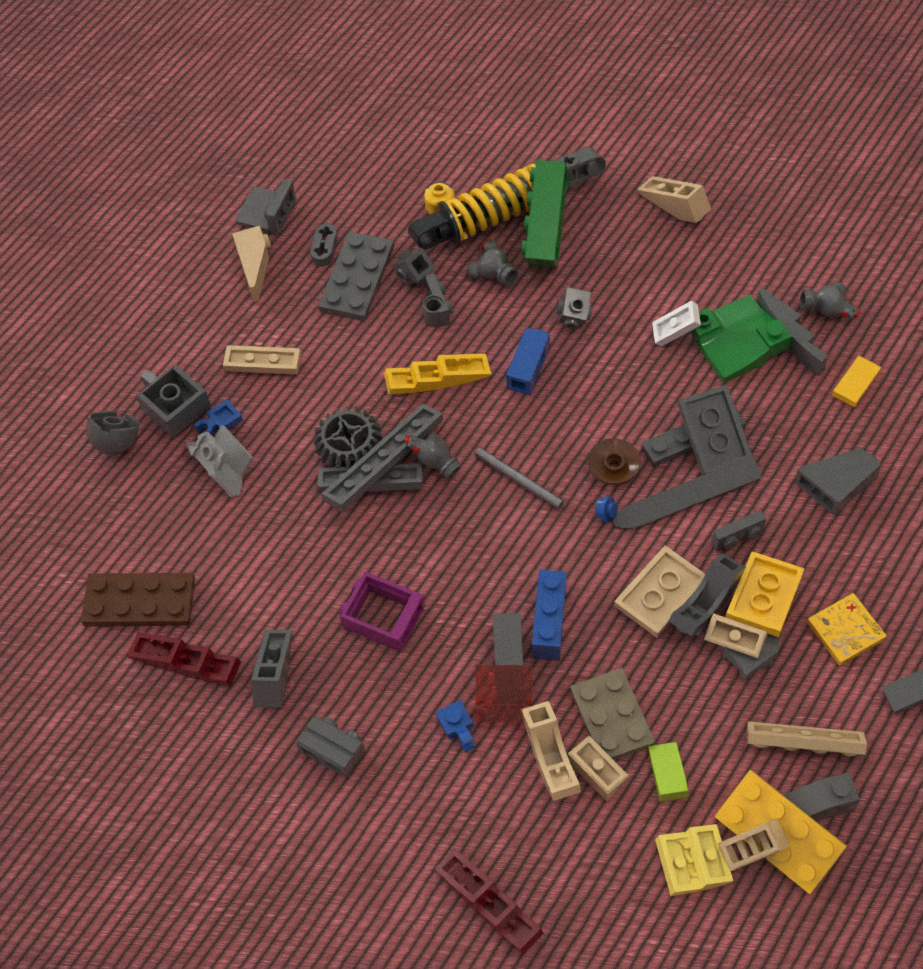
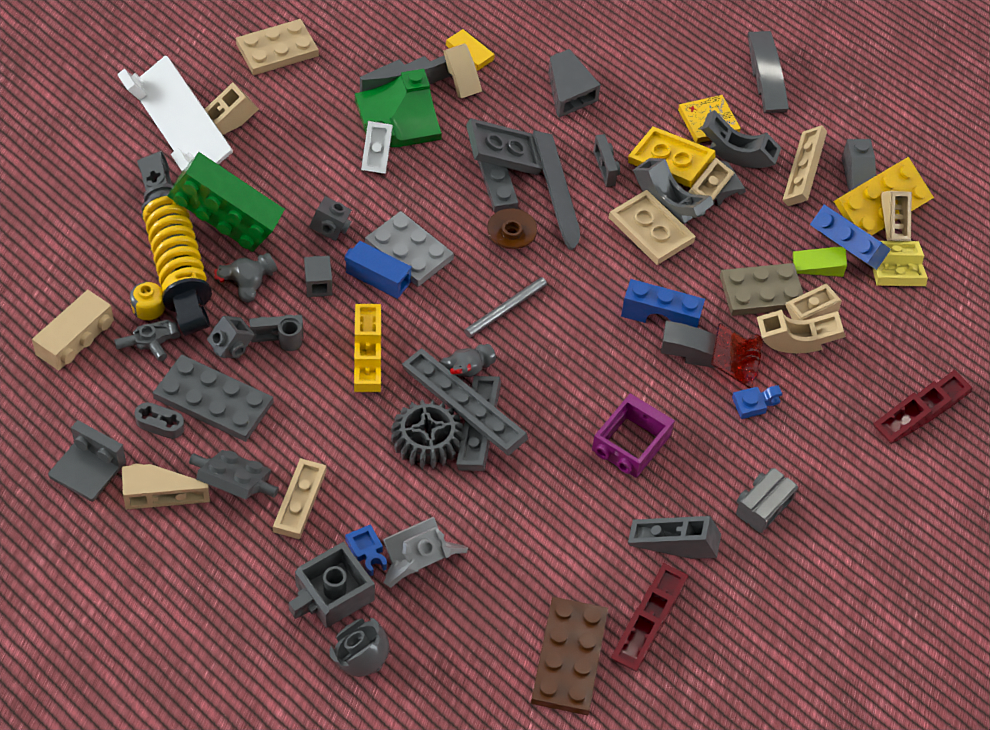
camera: 90 degrees left, 5 degrees down
(271, 305) = (234, 474): none -> dark grey plate
(398, 161) = (73, 330): none -> tan brick
(404, 212) = (150, 337): none -> dark grey piece
(507, 316) = (318, 276): none -> dark grey brick
(567, 383) = (412, 245): none -> light grey plate
(606, 509) = (560, 246): blue plate -> none
(659, 169) = (177, 113): none -> white bracket
(685, 804) = (850, 237): none -> blue arch
(791, 220) = (277, 47): none -> tan plate
(808, 657) = (738, 148): none -> dark grey arch
(810, 373) = (463, 70): none -> tan slope
(829, 301) = (382, 42): dark grey animal -> none

